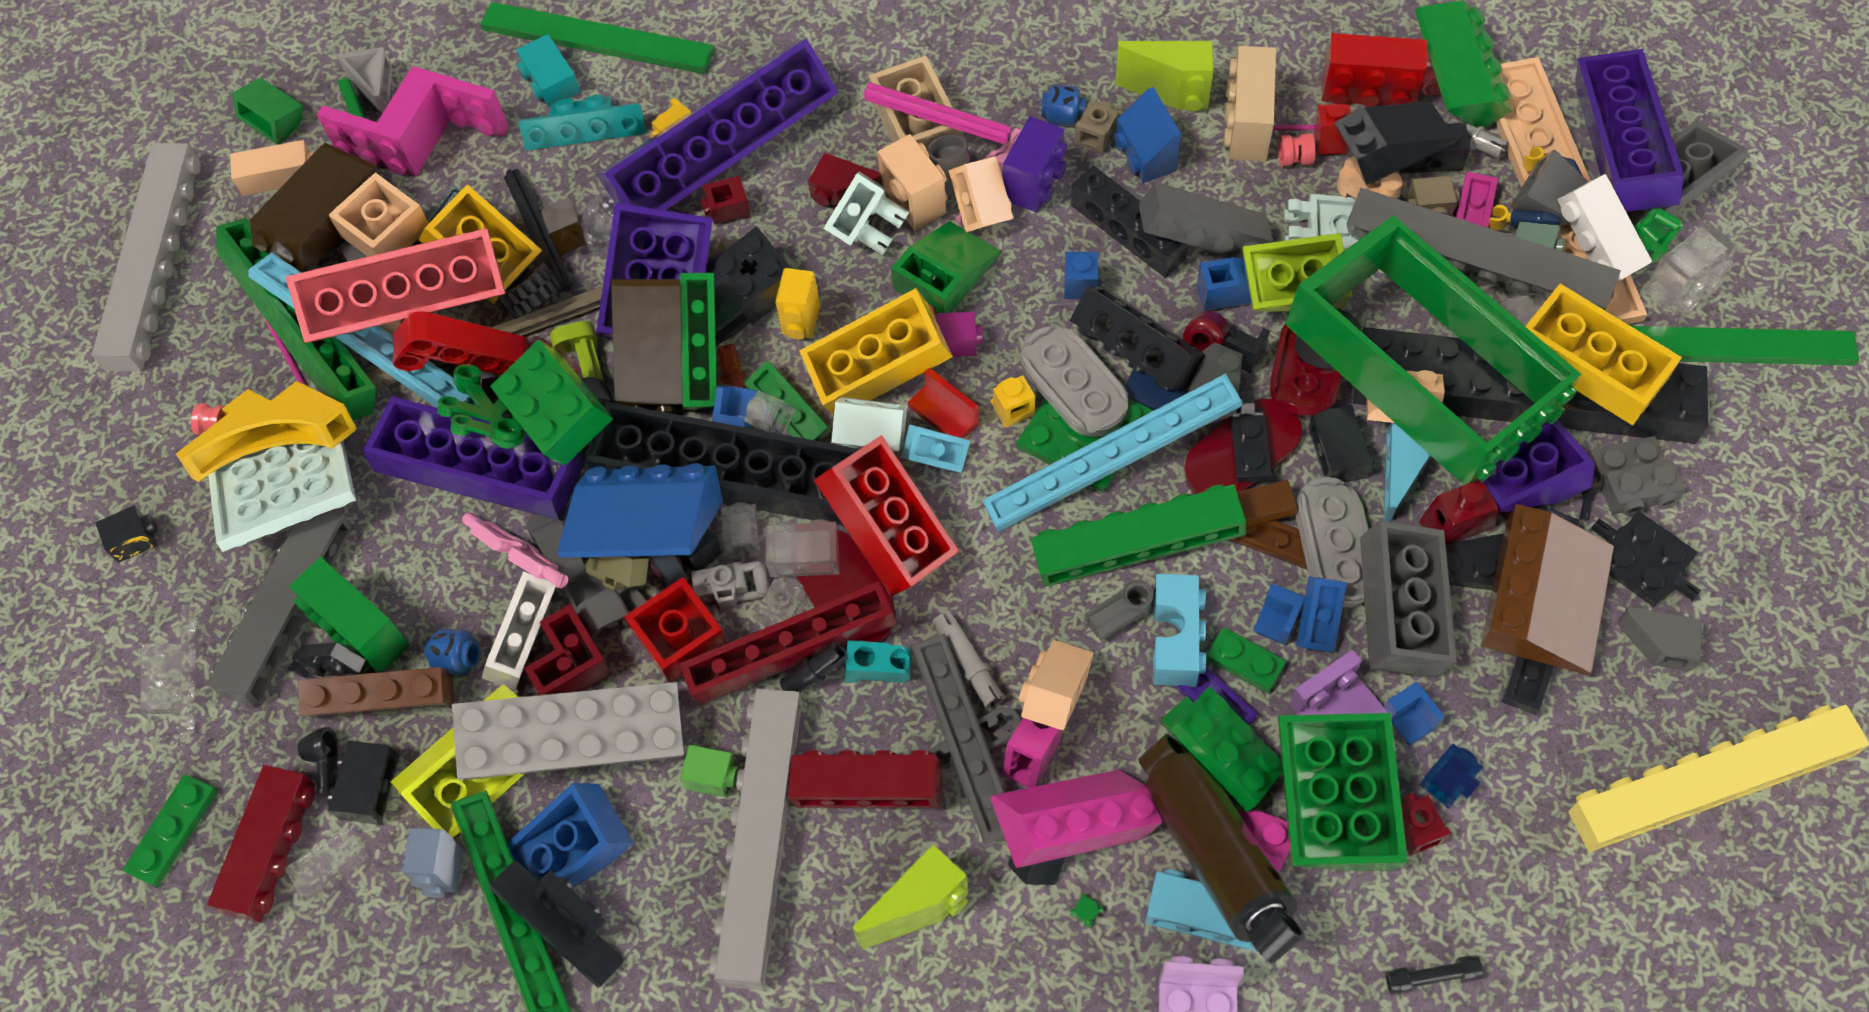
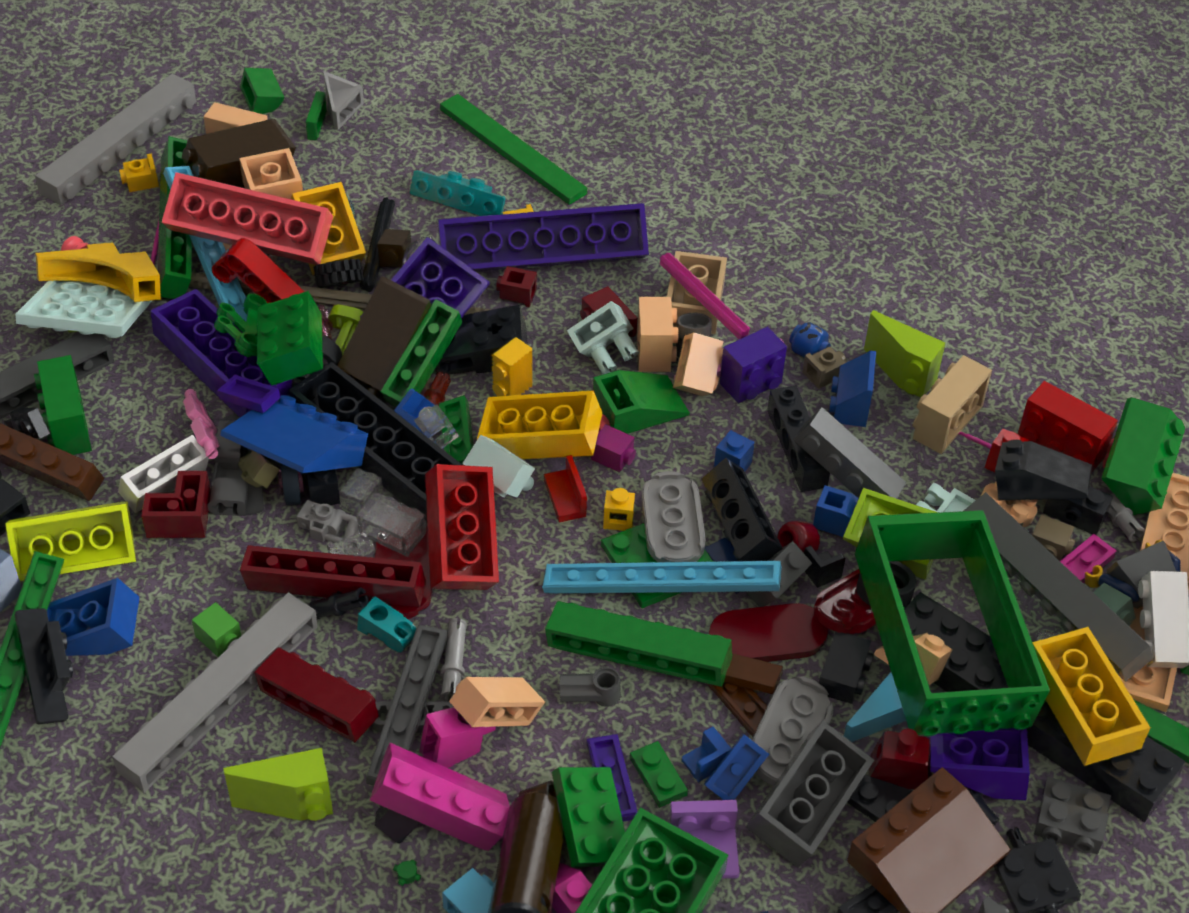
camera: 25 degrees right, 15 degrees down
(208, 286) = (139, 174): none -> yellow brick
(415, 121) = (346, 137): dark pink bracket -> none
(453, 650) = (112, 464): blue head -> none
(547, 70) = (460, 150): teal brick -> none
(553, 491) = (249, 393): none -> dark purple tile
(566, 731) = (140, 545): light grey brick -> none
(675, 628) = (264, 523): red brick -> none
(935, 448) = (536, 510): medium azure slope -> none
(1178, 657) = (608, 739): medium azure arch -> none
(1250, 442) = (775, 627): black hinge -> none
(1296, 149) = (962, 451): coral wheel -> none
(1413, 713) = (757, 878): blue panel -> none
(1588, 497) = (1028, 806): black hand -> none

